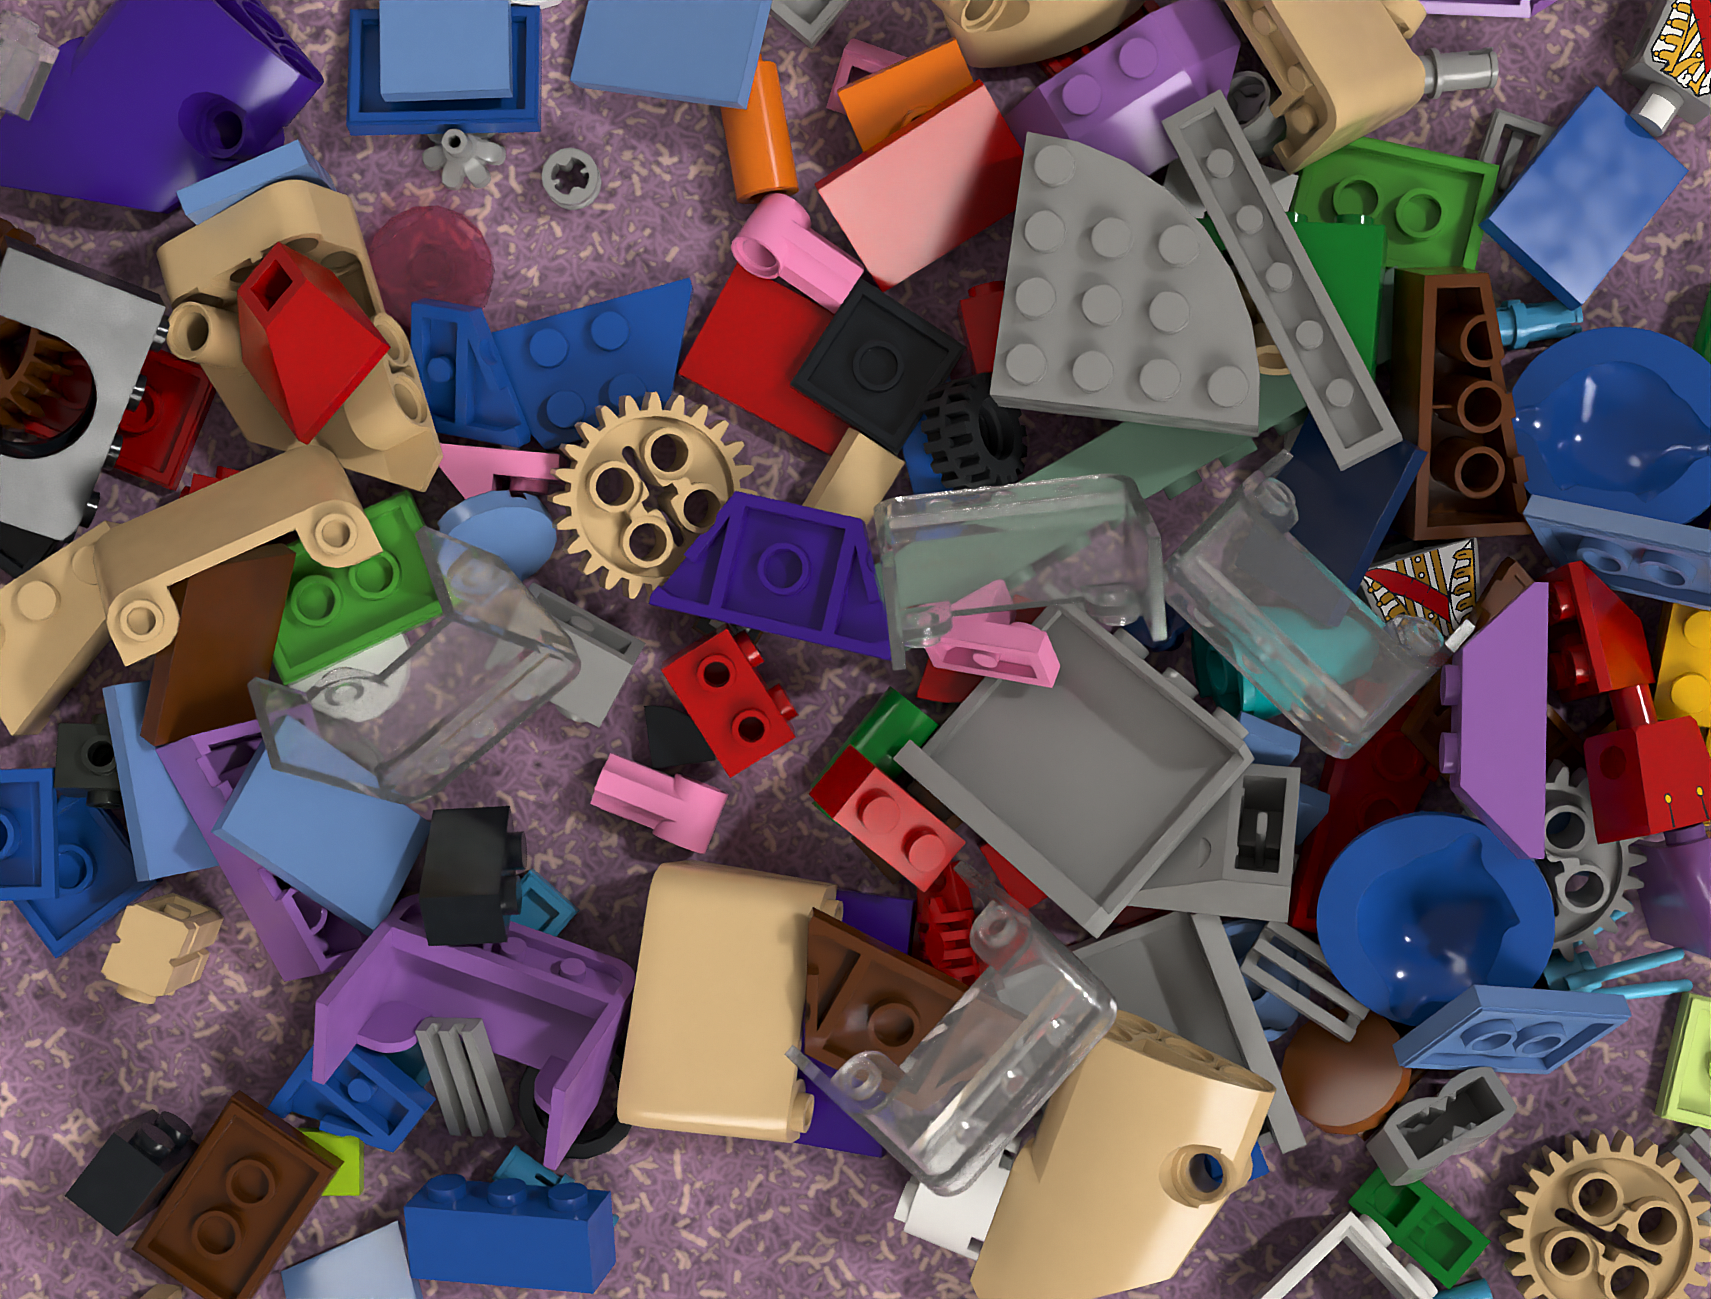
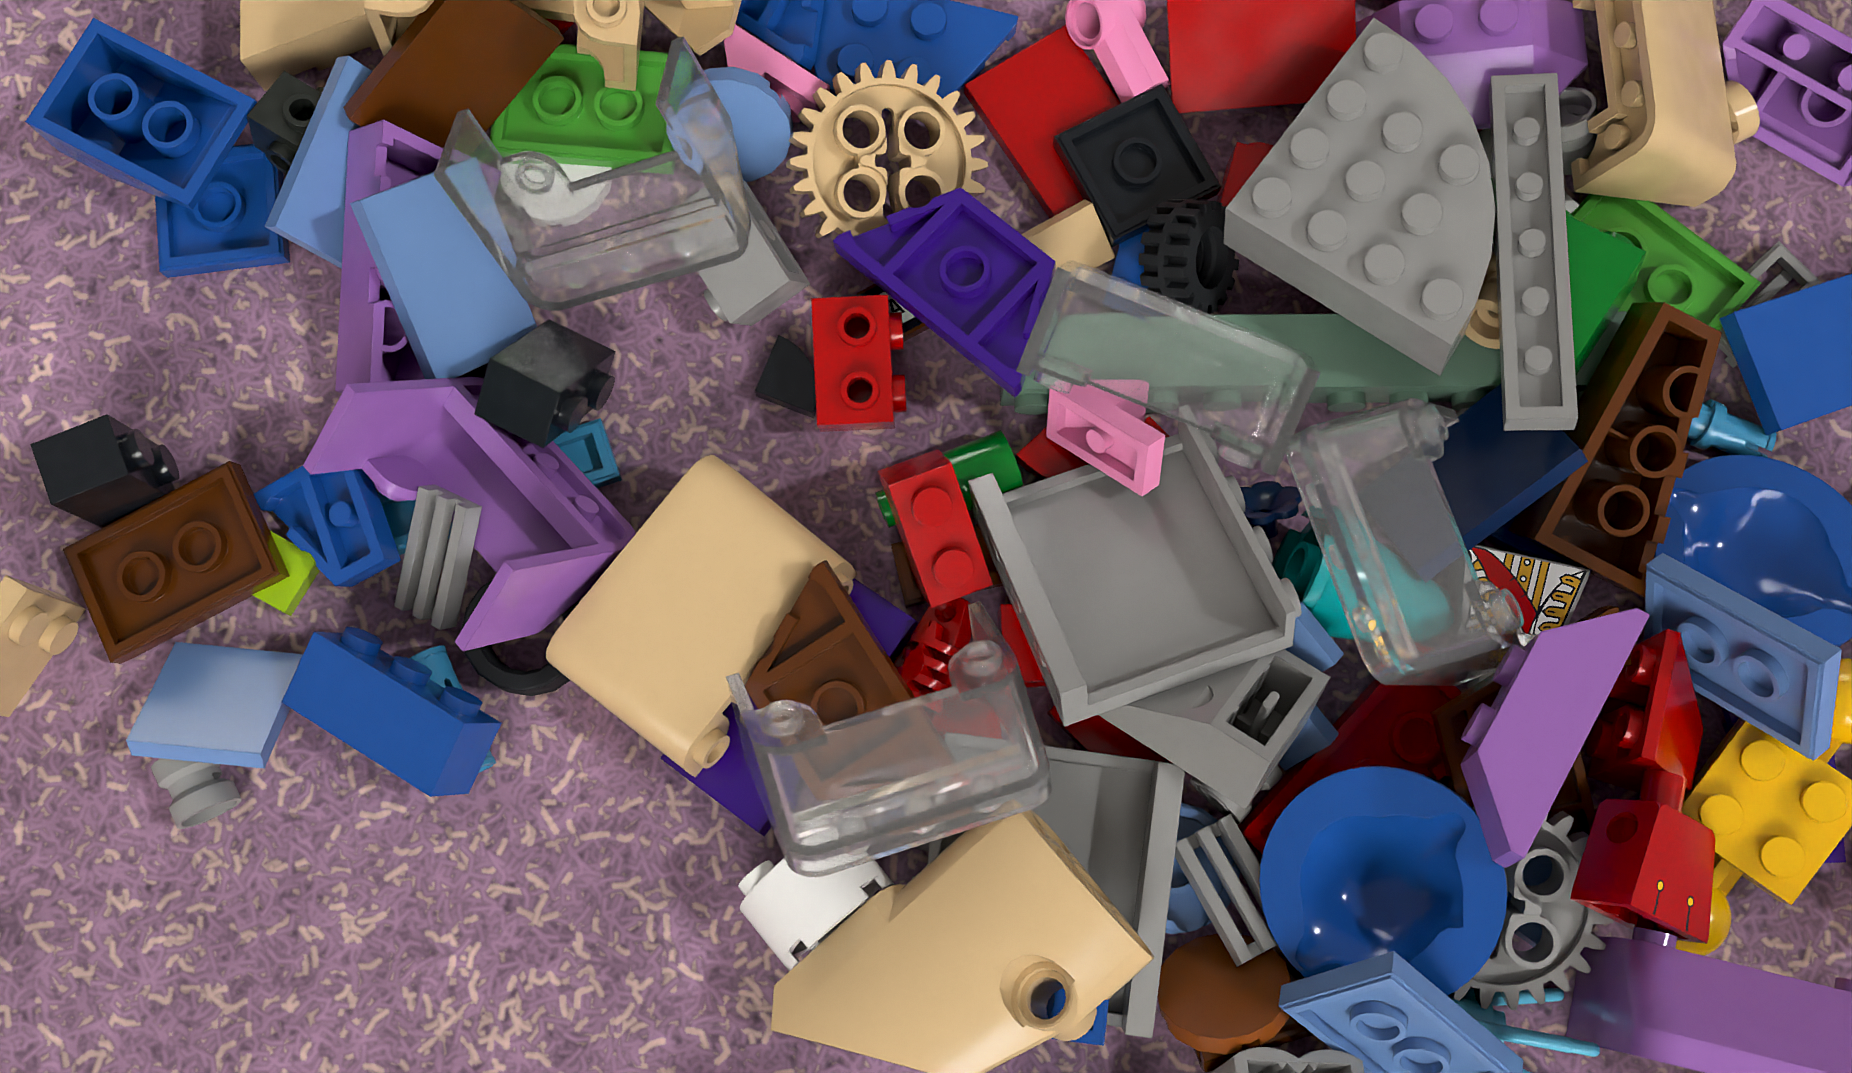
camera: 25 degrees right, 10 degrees down
(161, 946) = (249, 299): tan brick -> none
(674, 807) = (754, 432): bright pink piece -> none
(1459, 70) = (1761, 194): light grey pin -> none

